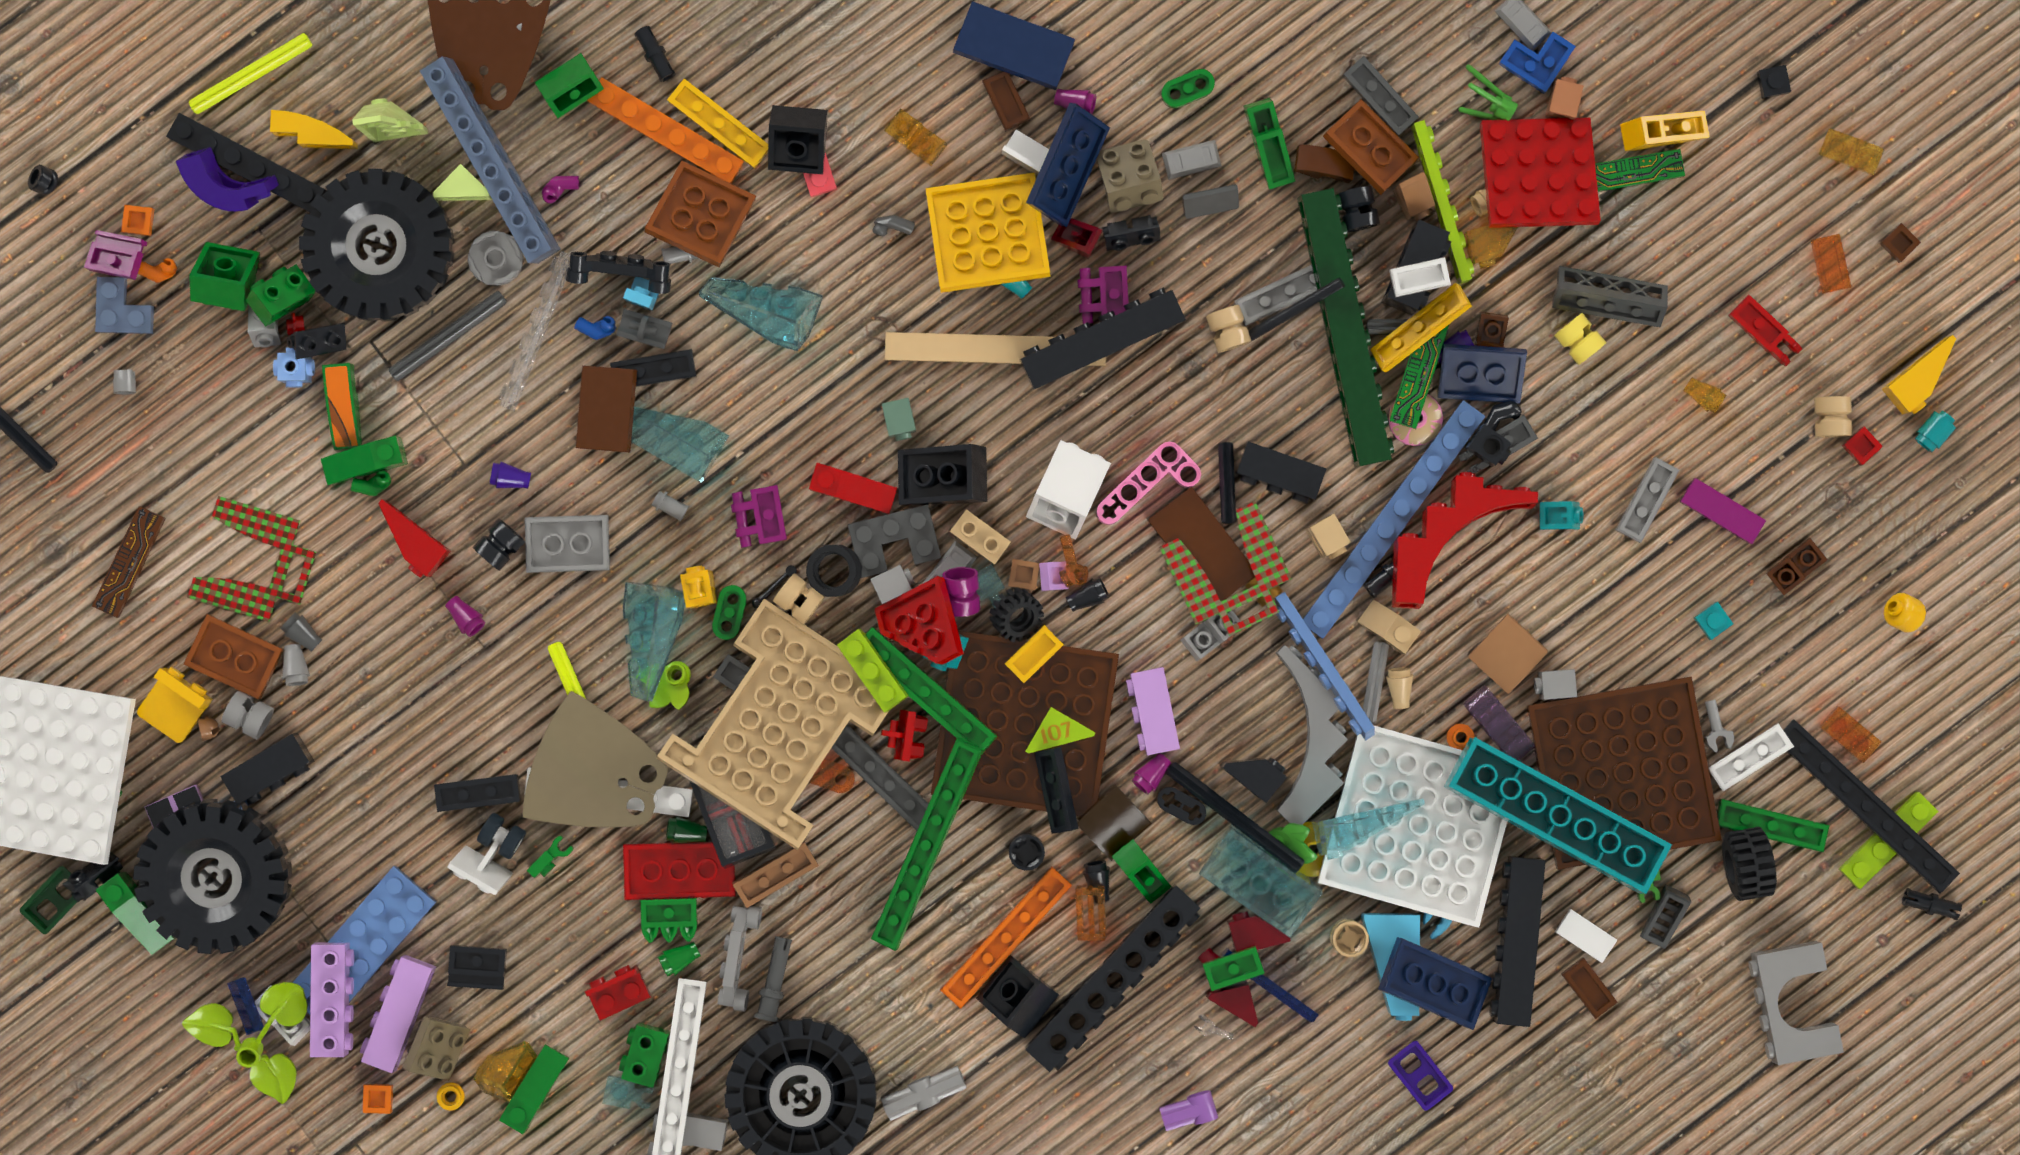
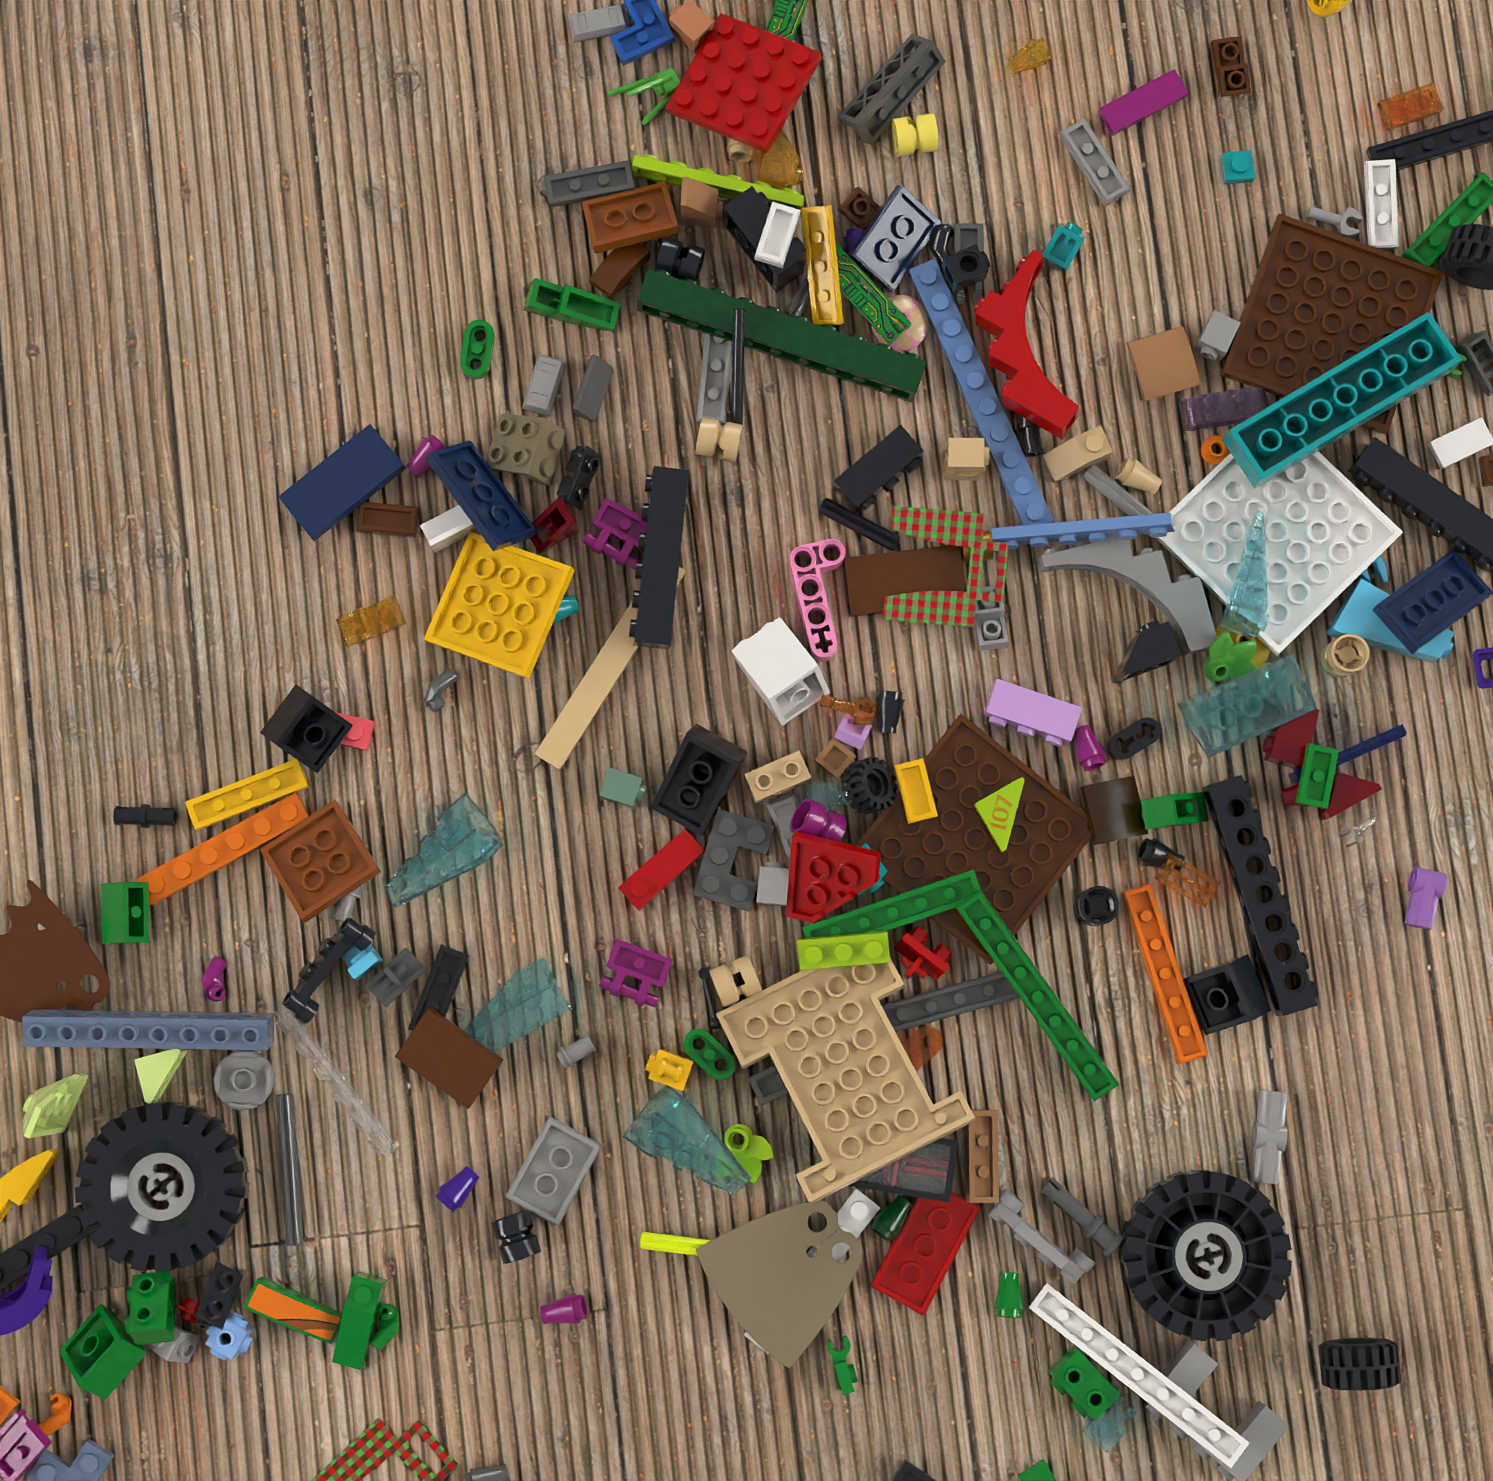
camera: 60 degrees left, 5 degrees down
(415, 544) = (468, 1317): red slope -> none
(477, 792) = (740, 1398): black plate -> none
(481, 869) = (817, 1437): white plate -> none
(598, 329) = (370, 1022): blue arm -> none
(618, 992) = (1008, 1374): red bracket -> none
(669, 915) = (963, 1282): green plate -> none
(853, 579) = (724, 954): black tyre -> none
(1056, 790) = (1056, 844): black plate -> none
(1235, 817) = (1174, 694): black axle -> none

